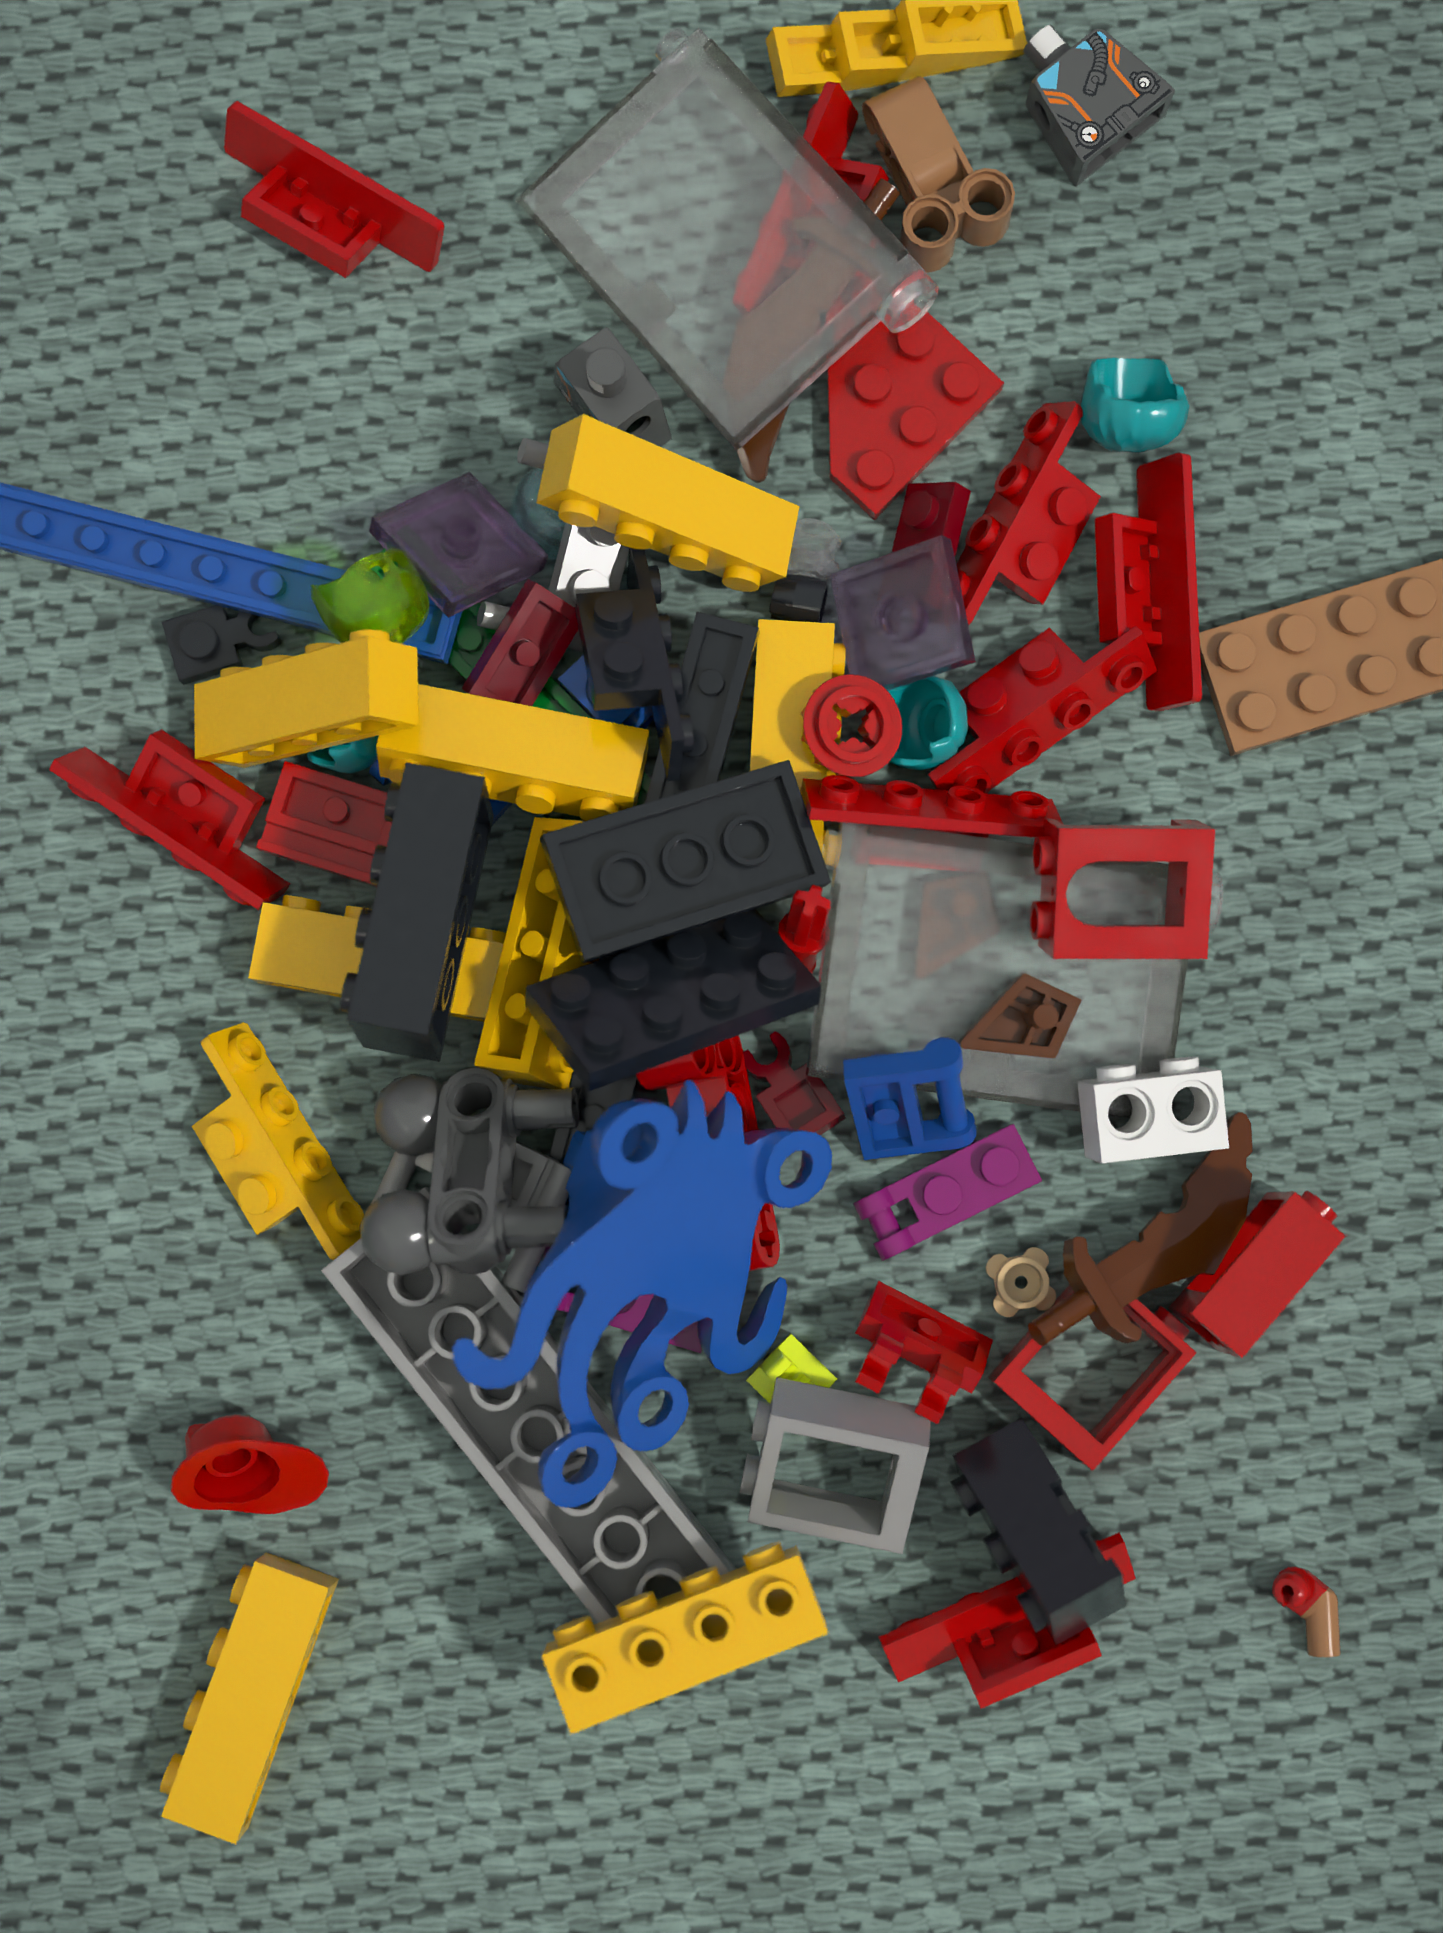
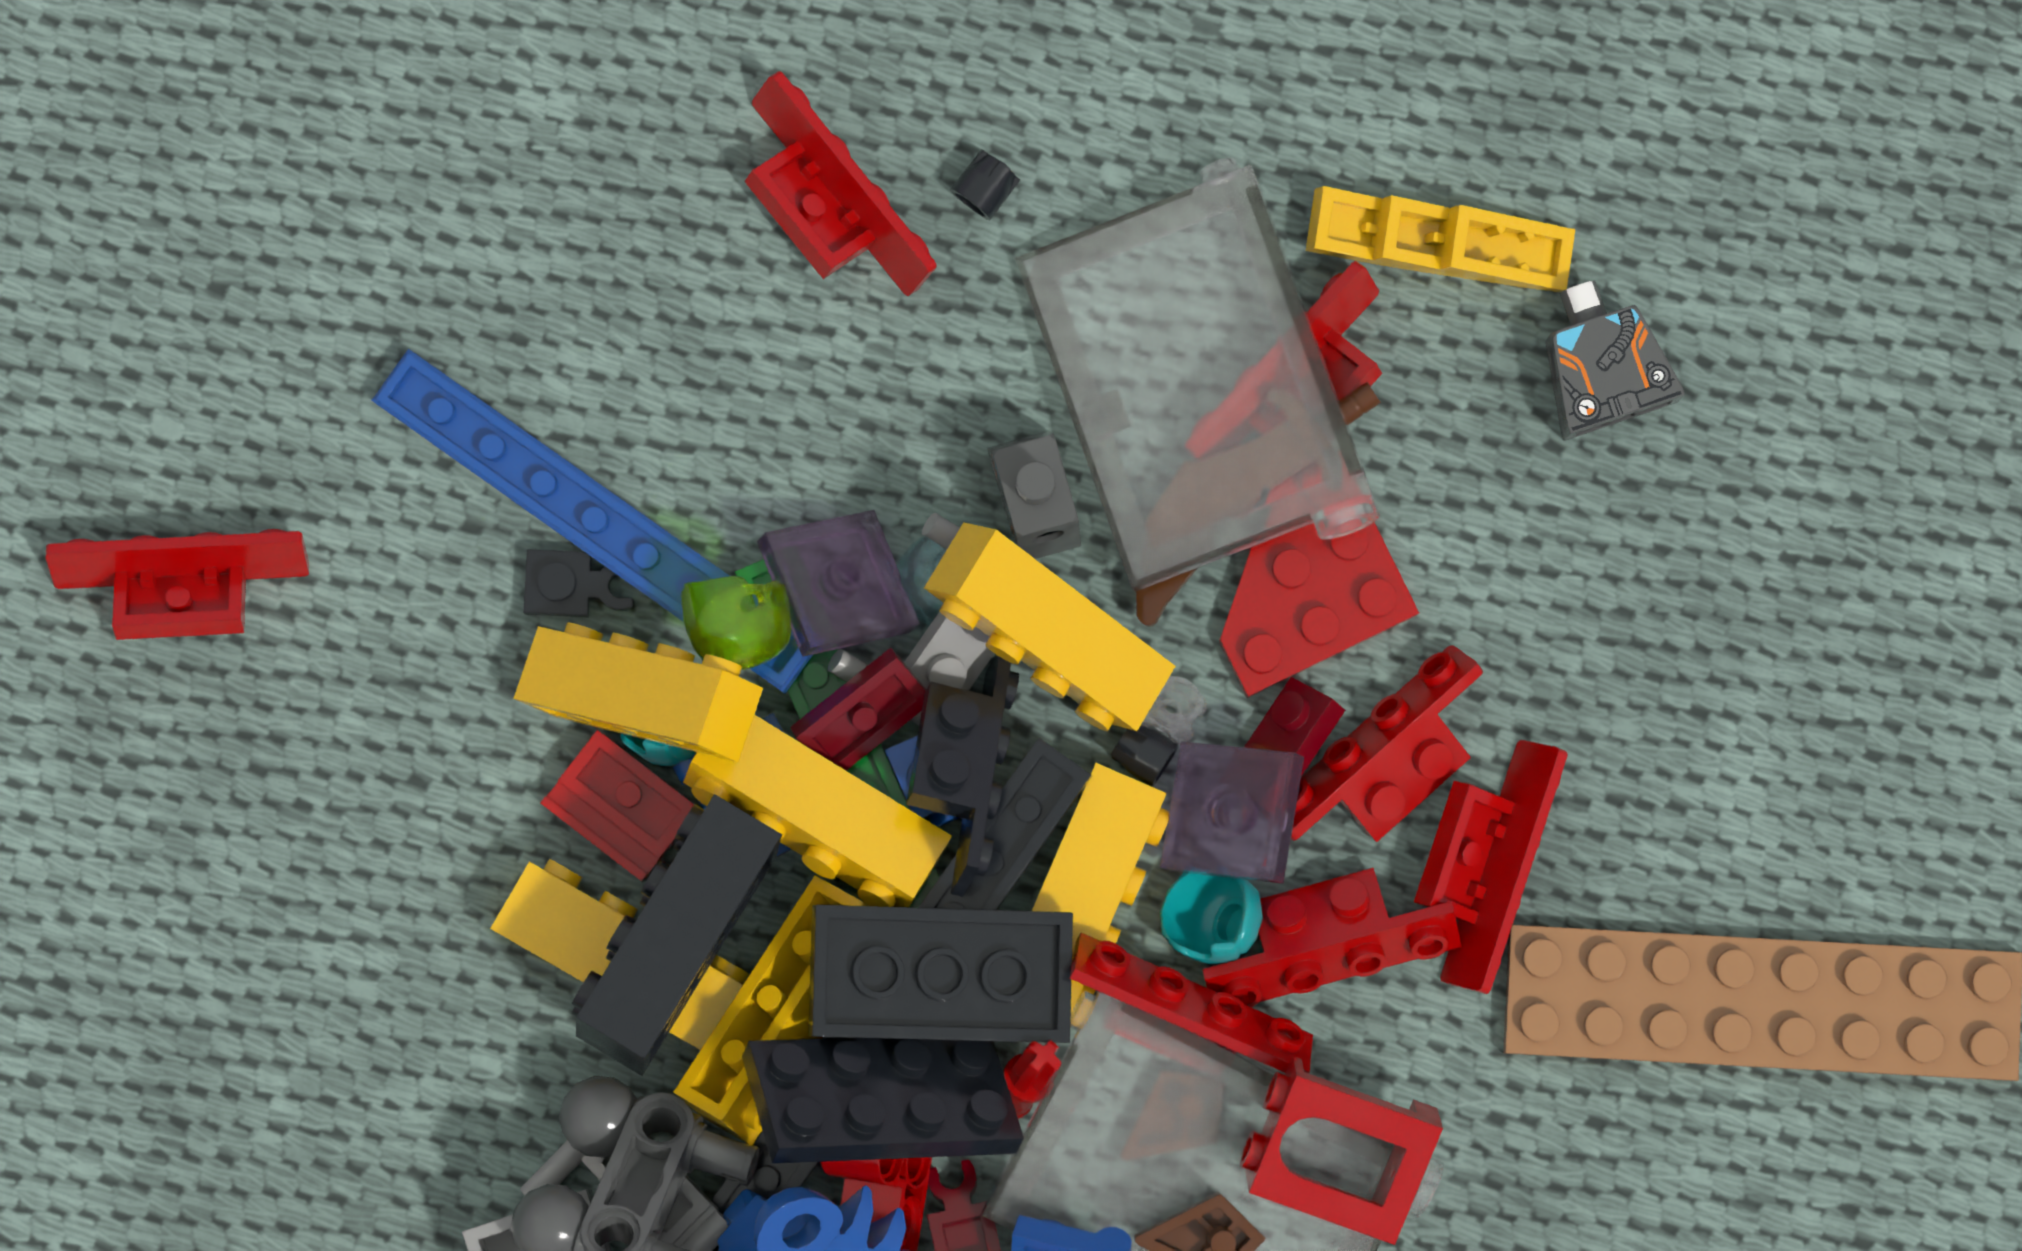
camera: 10 degrees right, 0 degrees up
(183, 807) = (484, 738): red bracket -> none
(269, 1148) = (449, 1096): yellow bracket -> none
(463, 143) = (985, 185): none -> black hose
(879, 729) = (1171, 910): red gear -> none
(935, 175) = (1425, 381): medium nougat piece -> none
(1132, 404) = (1532, 681): teal hair -> none

